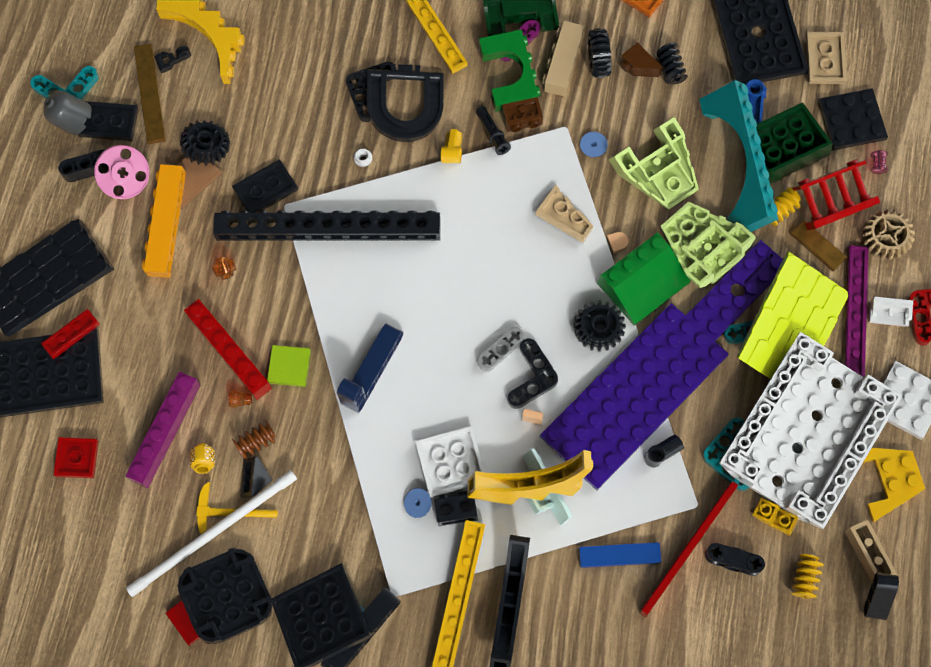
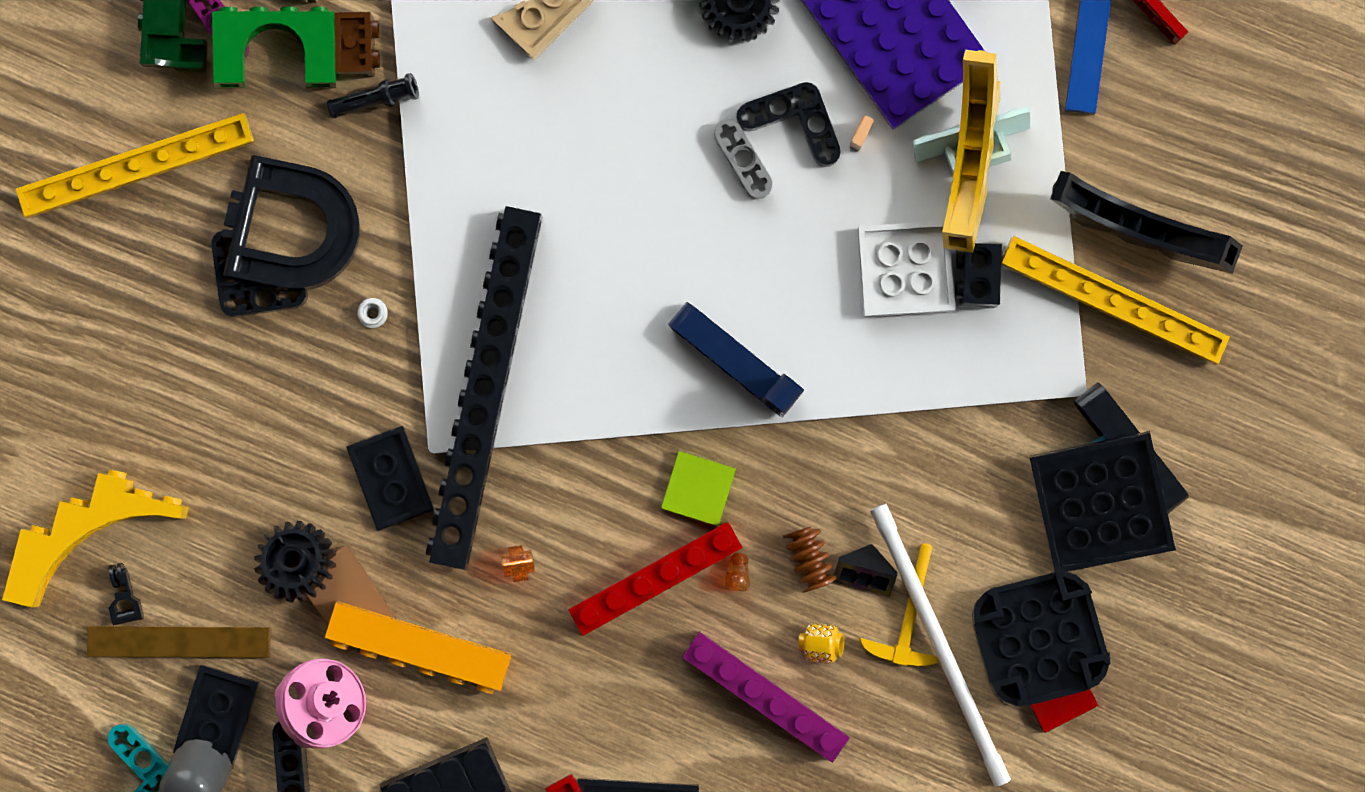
camera: 85 degrees left, 15 degrees up
(417, 503) = (958, 330): medium blue piece -> none
(451, 151) = (395, 167): yellow piece -> none

